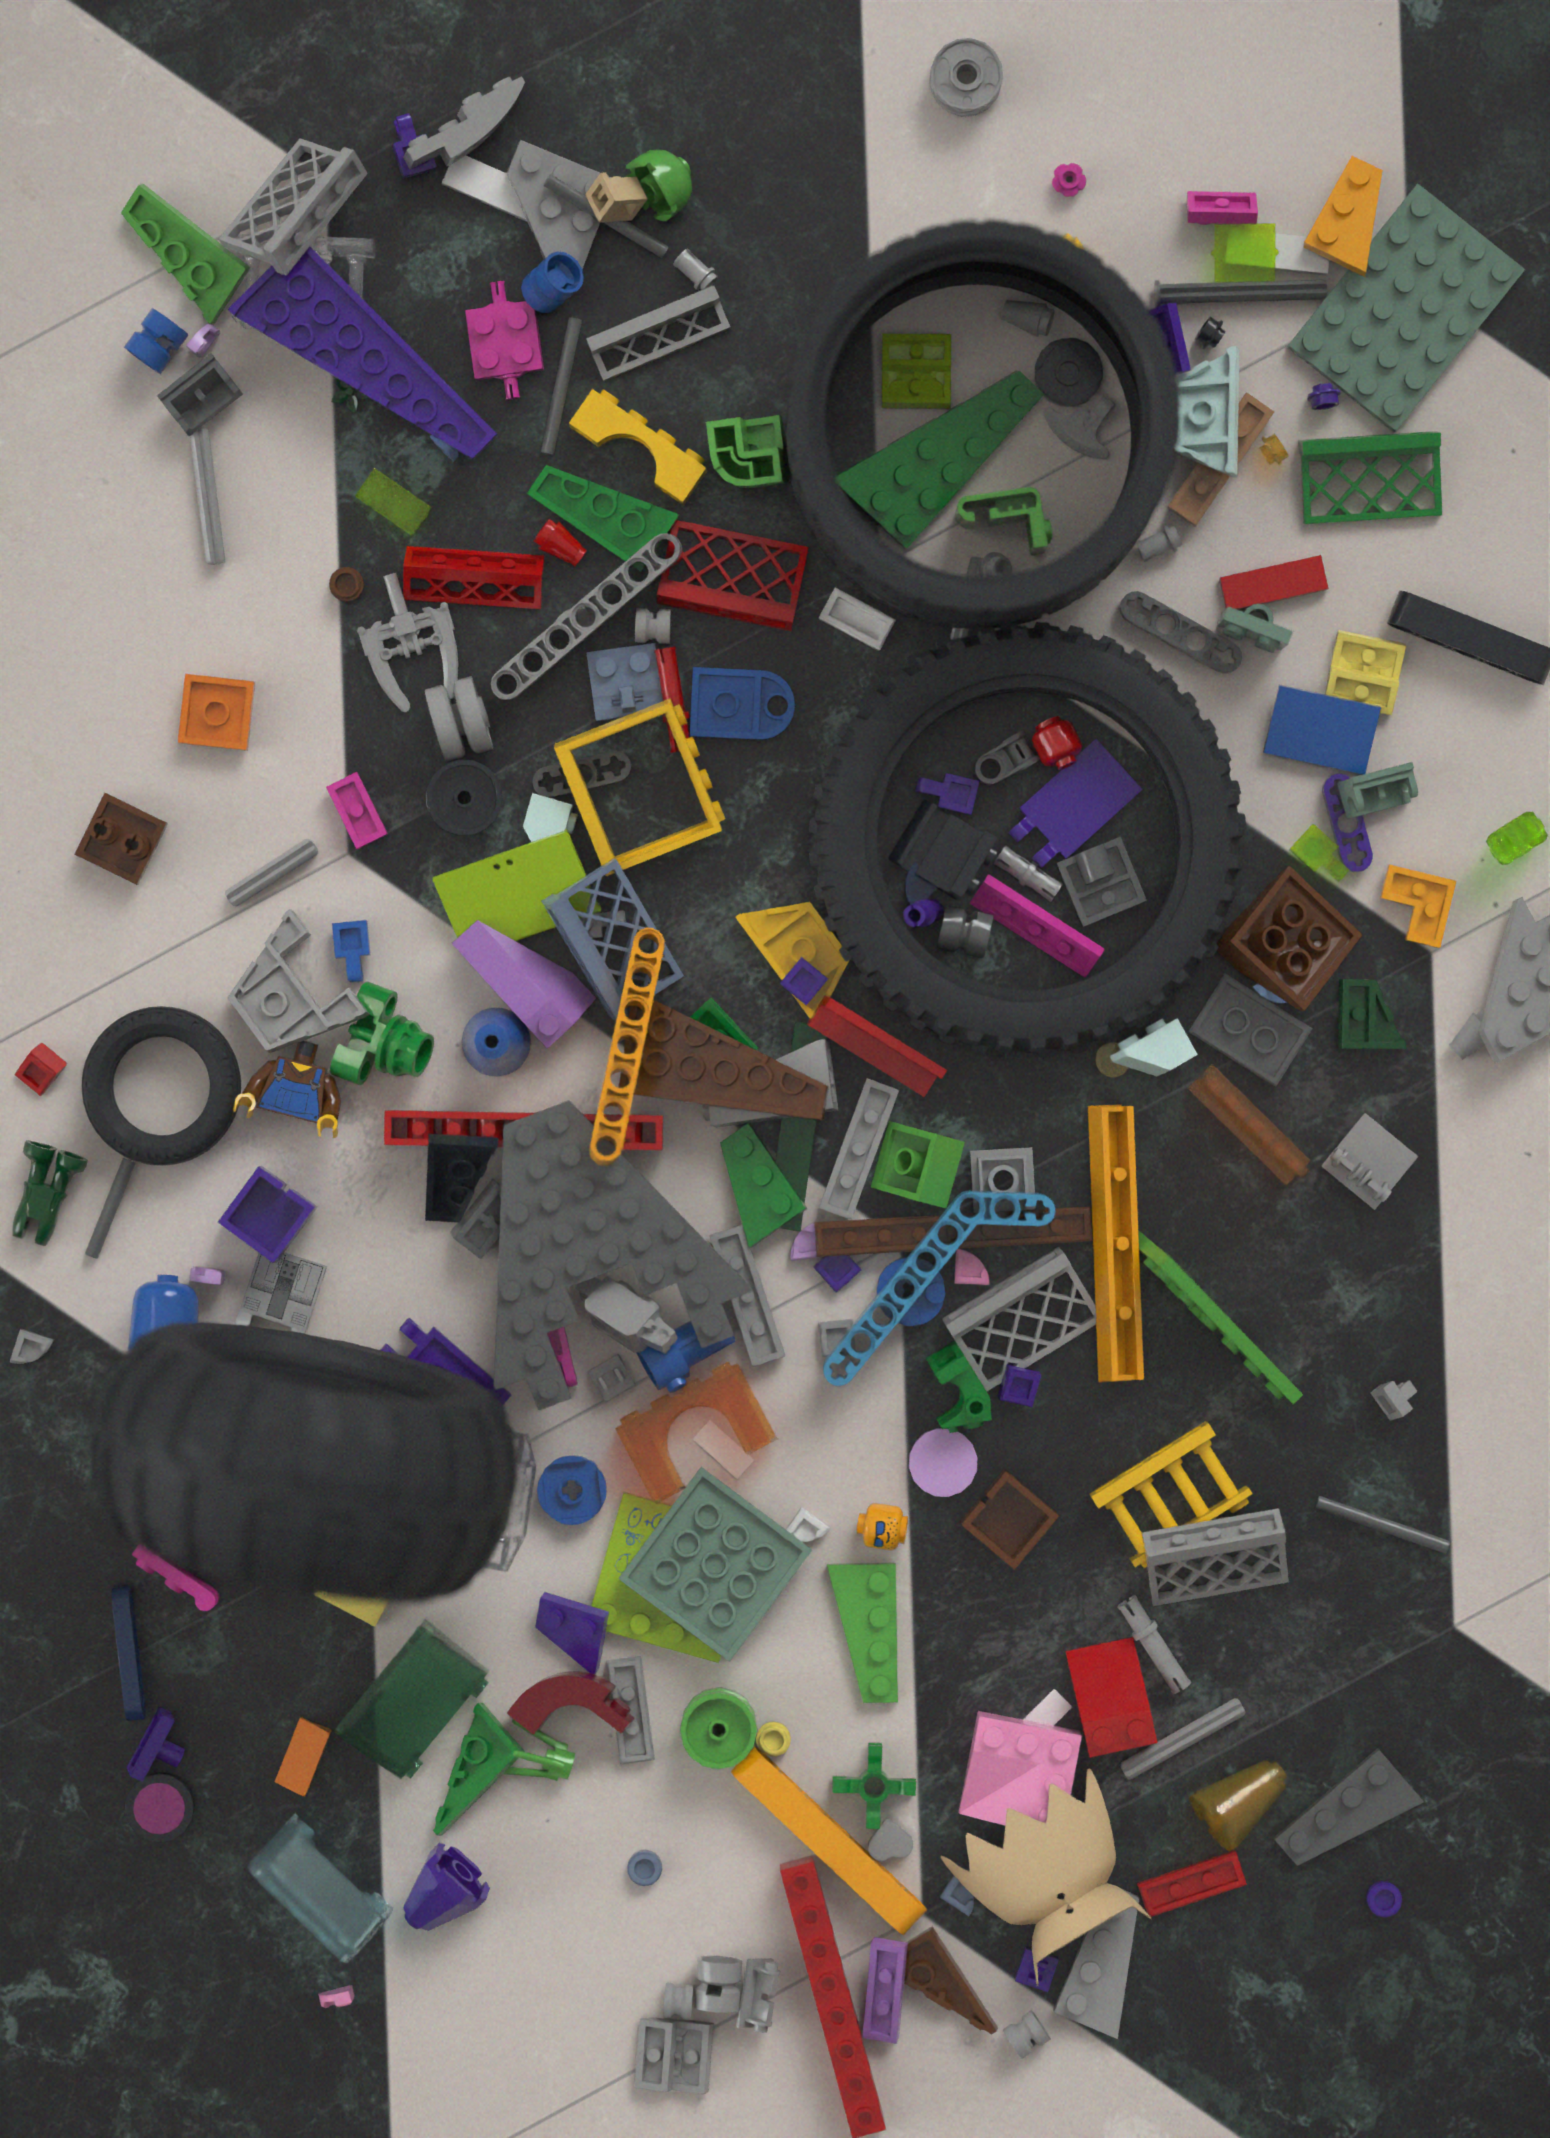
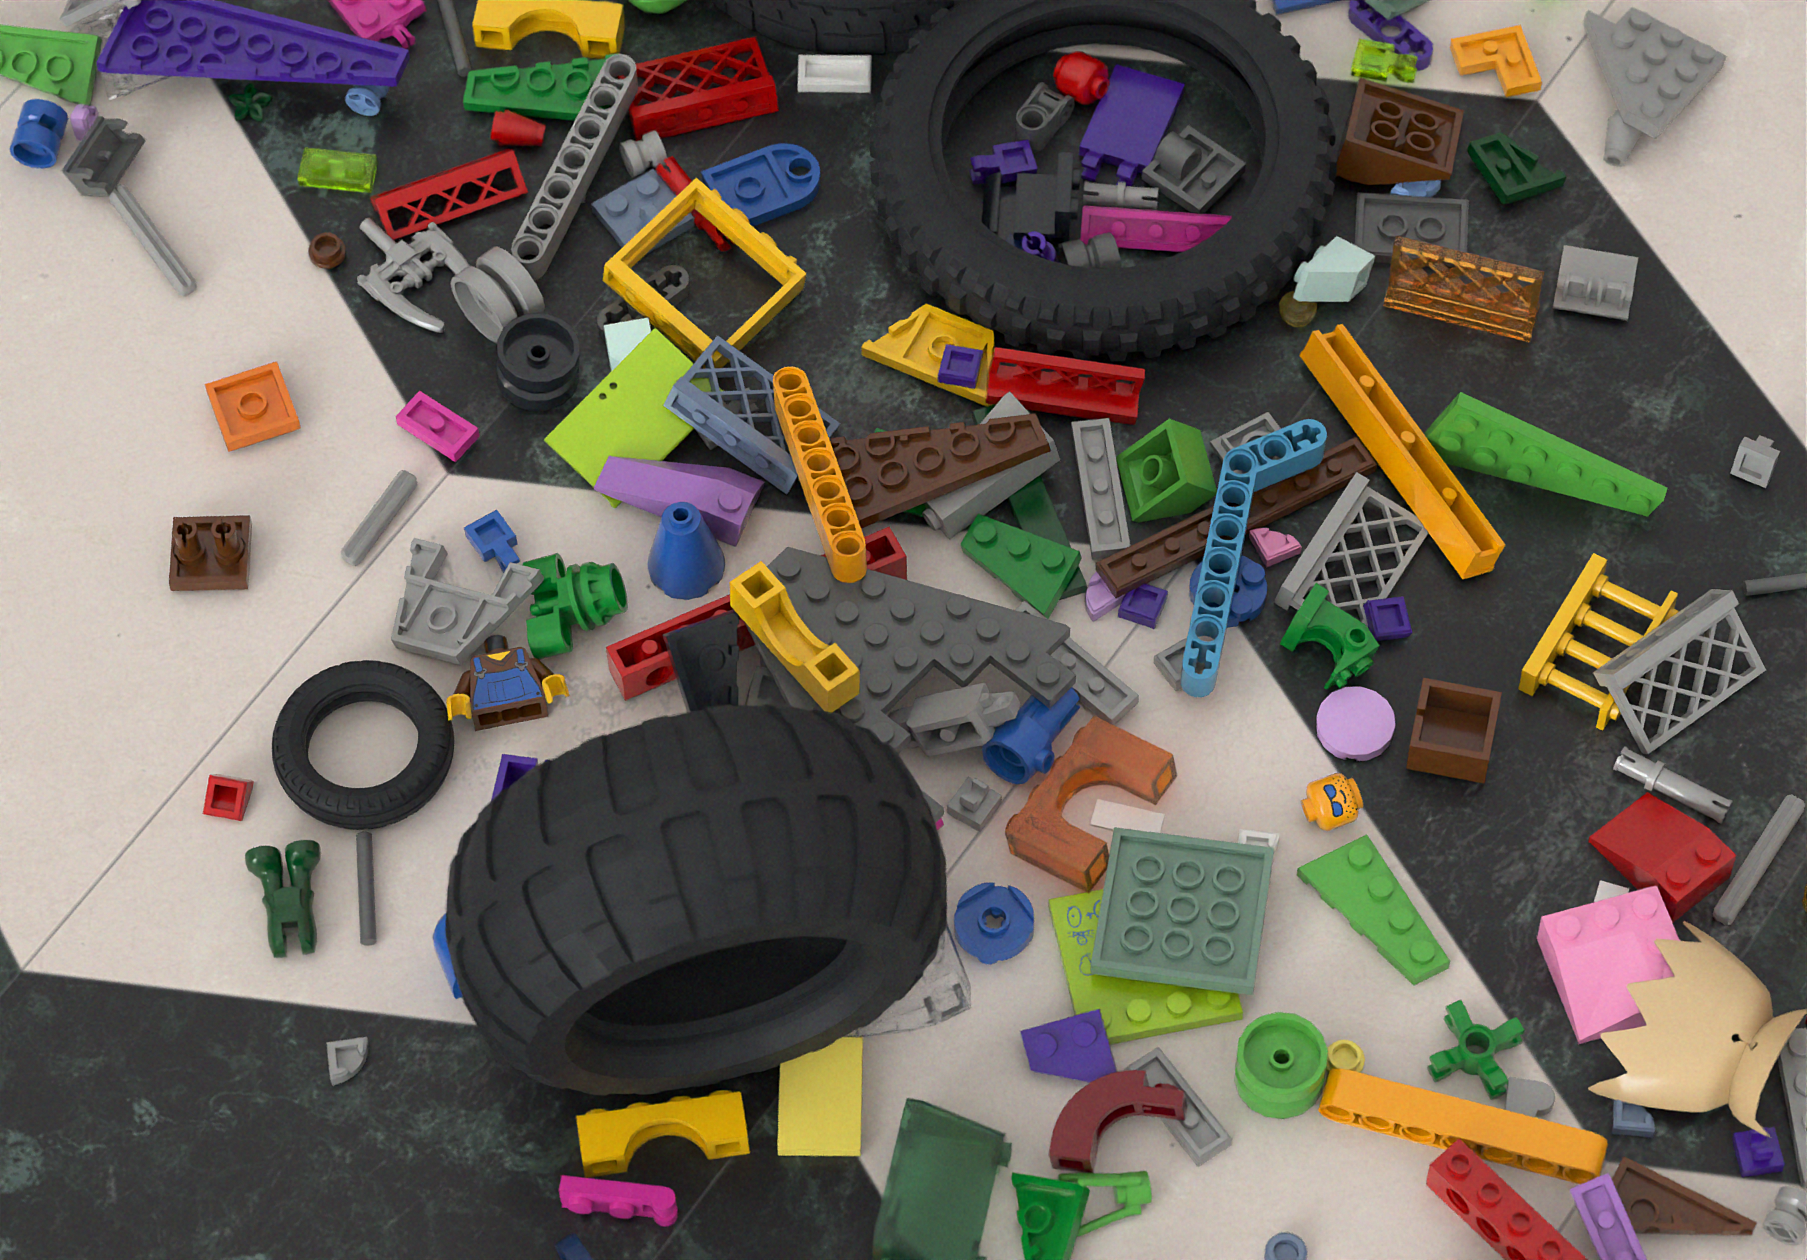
camera: 30 degrees left, 30 degrees down
(522, 1207) = (770, 614): none -> yellow arch

